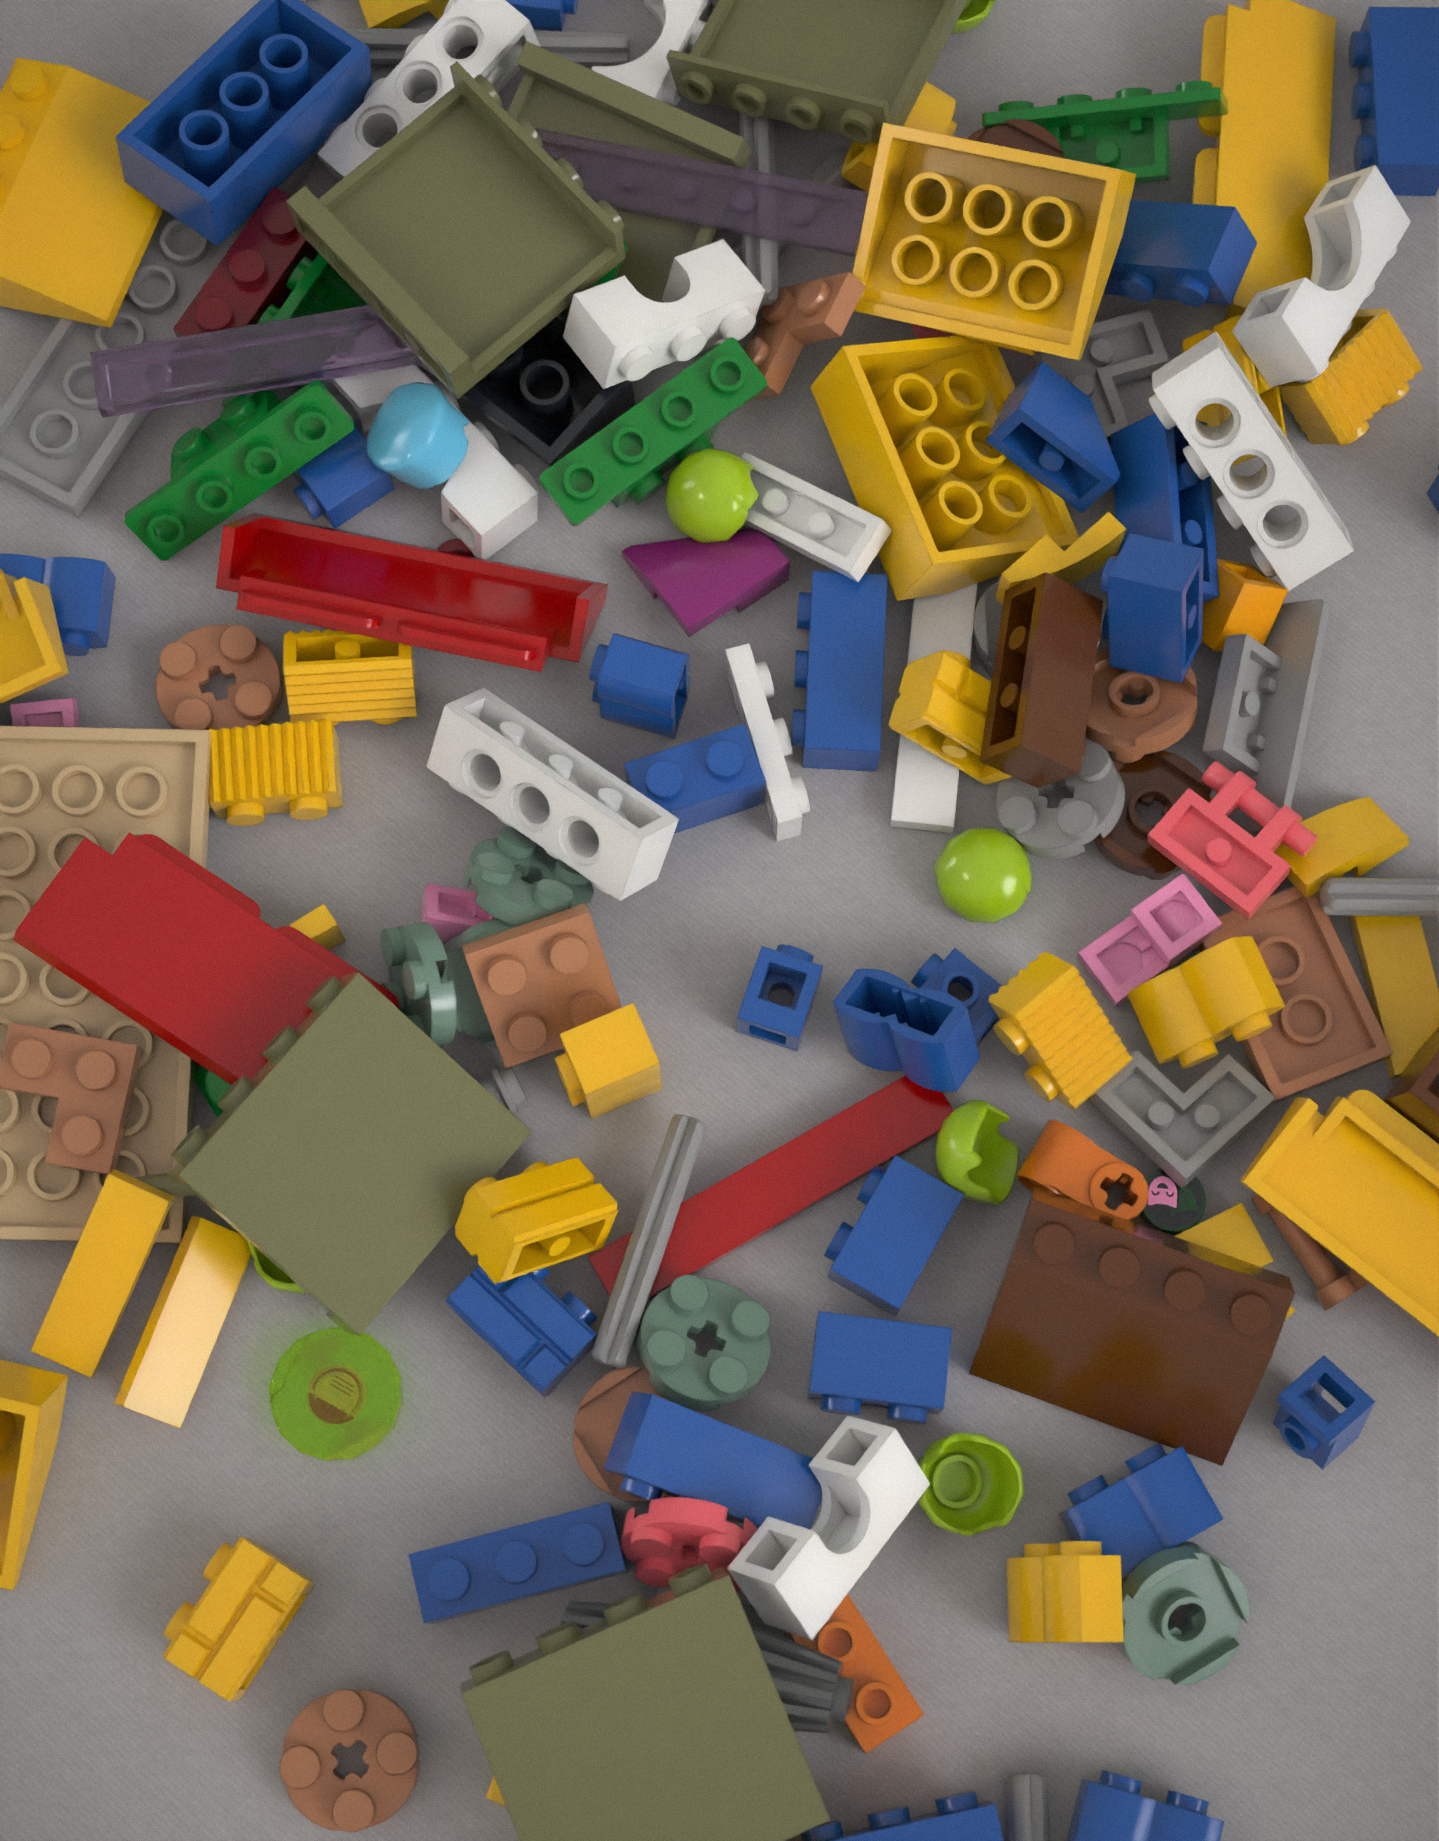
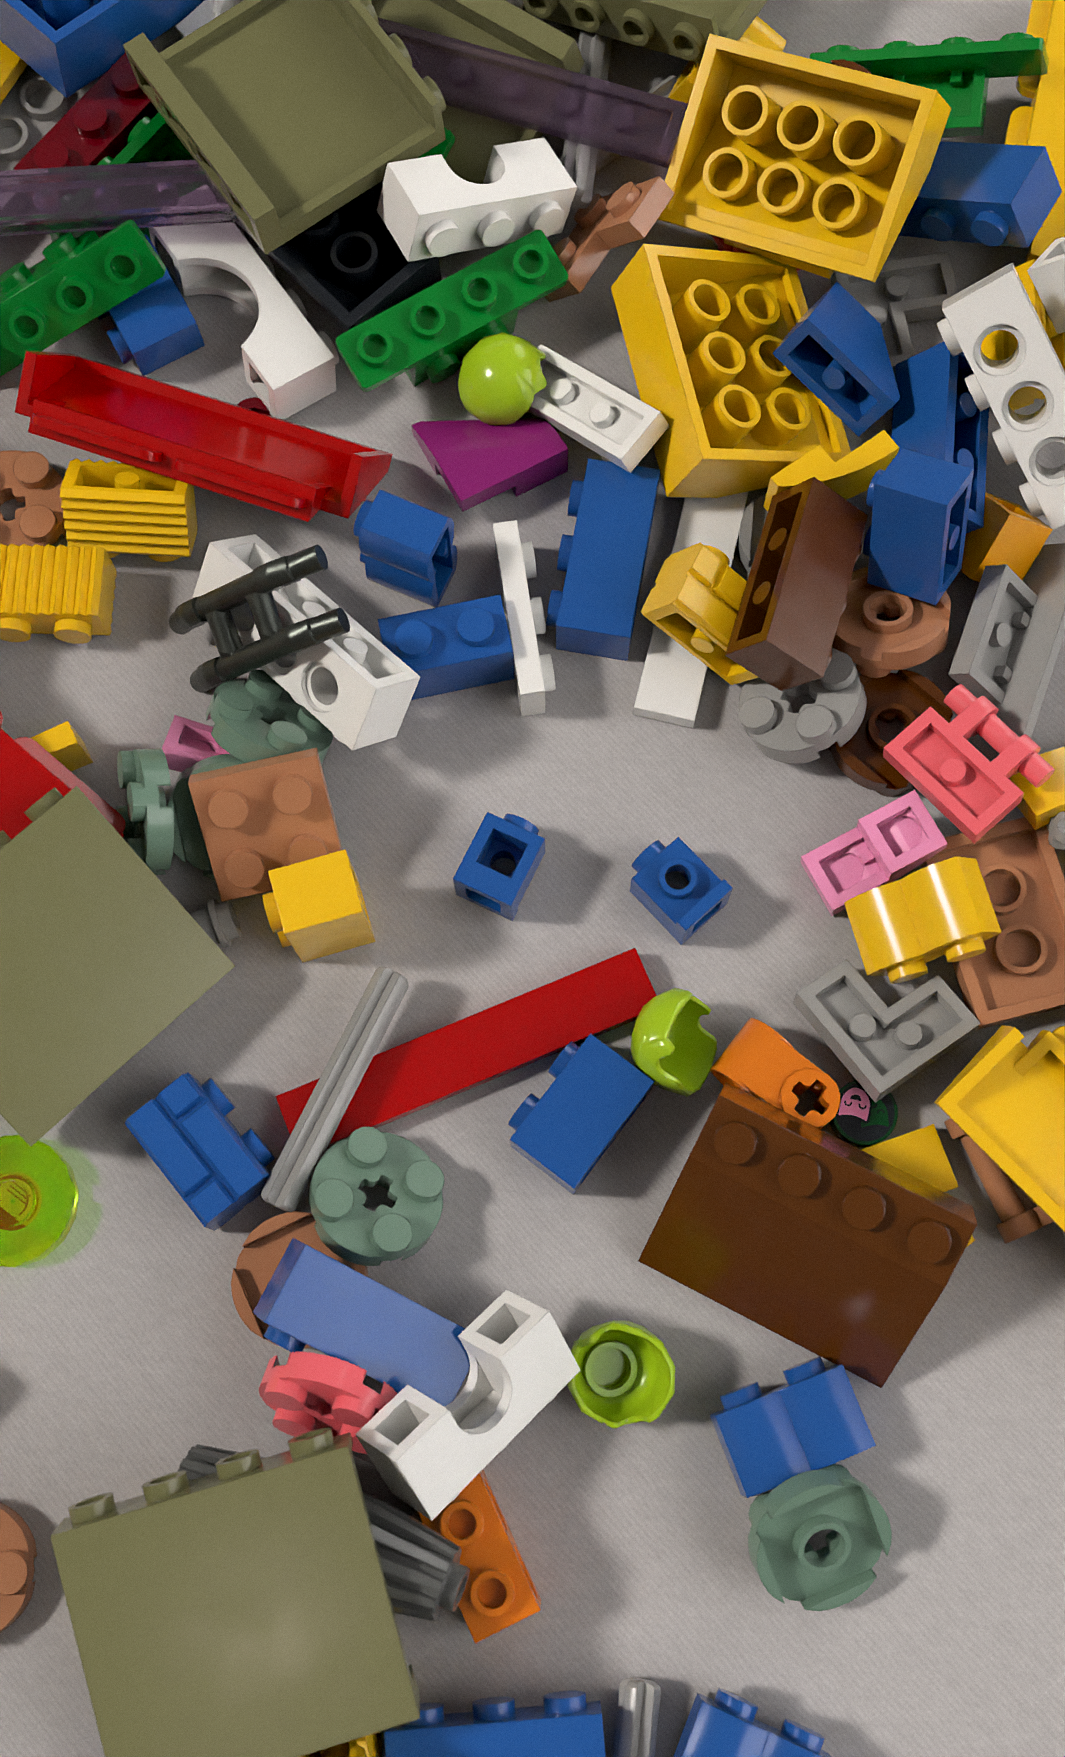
camera: 10 degrees right, 0 degrees up
(418, 436) = (227, 290): medium azure hair -> none
(506, 752) = (274, 639): none -> pearl dark grey piece
(517, 1563) = (155, 1395): blue brick -> none
(535, 1218) = (223, 1052): yellow brick -> none
(879, 1366) = (546, 1242): blue brick -> none
(907, 1029) = (619, 910): blue brick -> none
(983, 875) = (717, 771): lime hair -> none
(1058, 1030) = (770, 929): yellow brick -> none
(1065, 1594) = (702, 1505): yellow brick -> none
(1311, 1423) = (977, 1356): blue brick -> none

